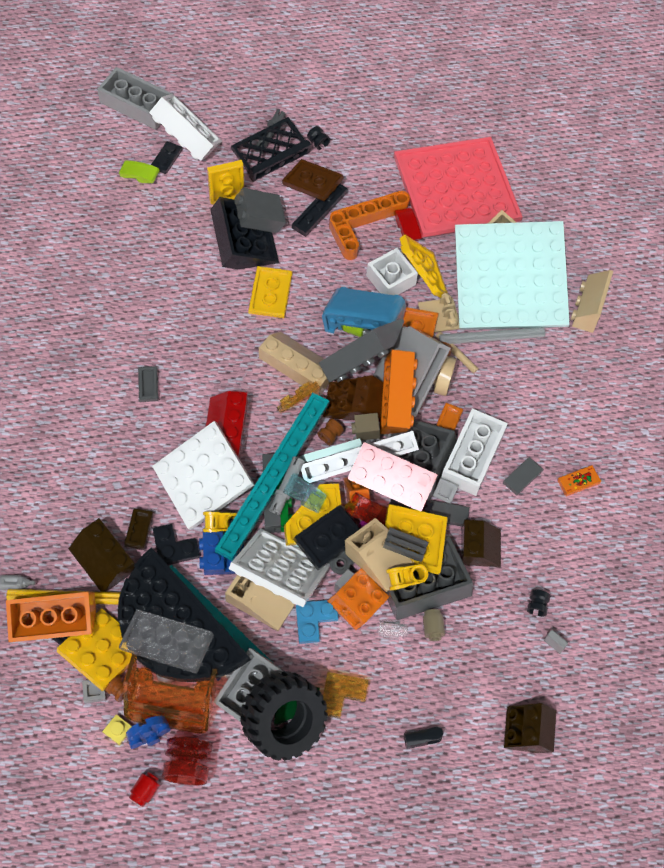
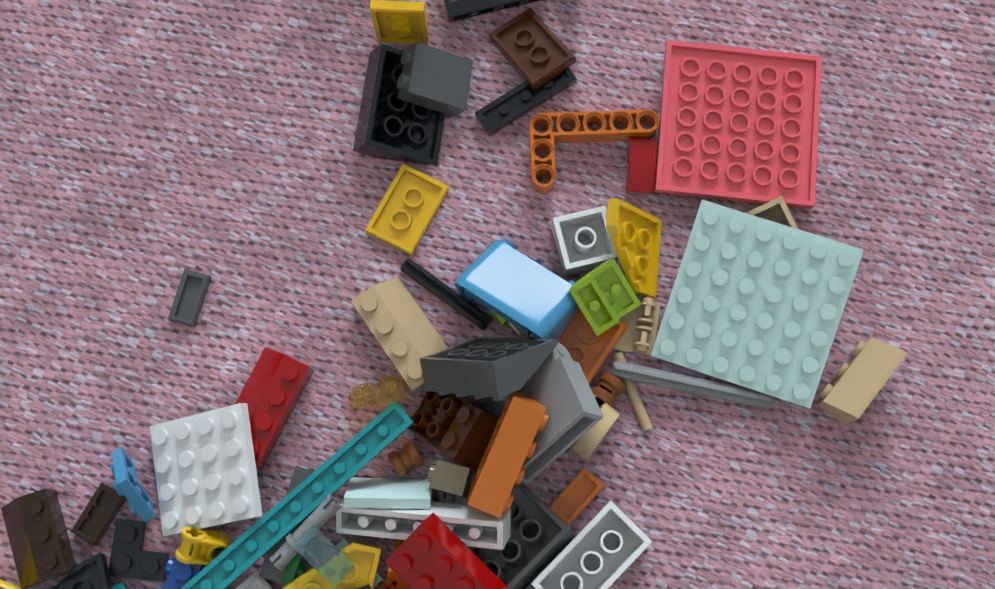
camera: 25 degrees right, 15 degrees up
(153, 495) = (127, 484): none -> dark azure plate
(316, 332) = (446, 294): none -> black axle
(418, 297) = (604, 296): none -> lime slope

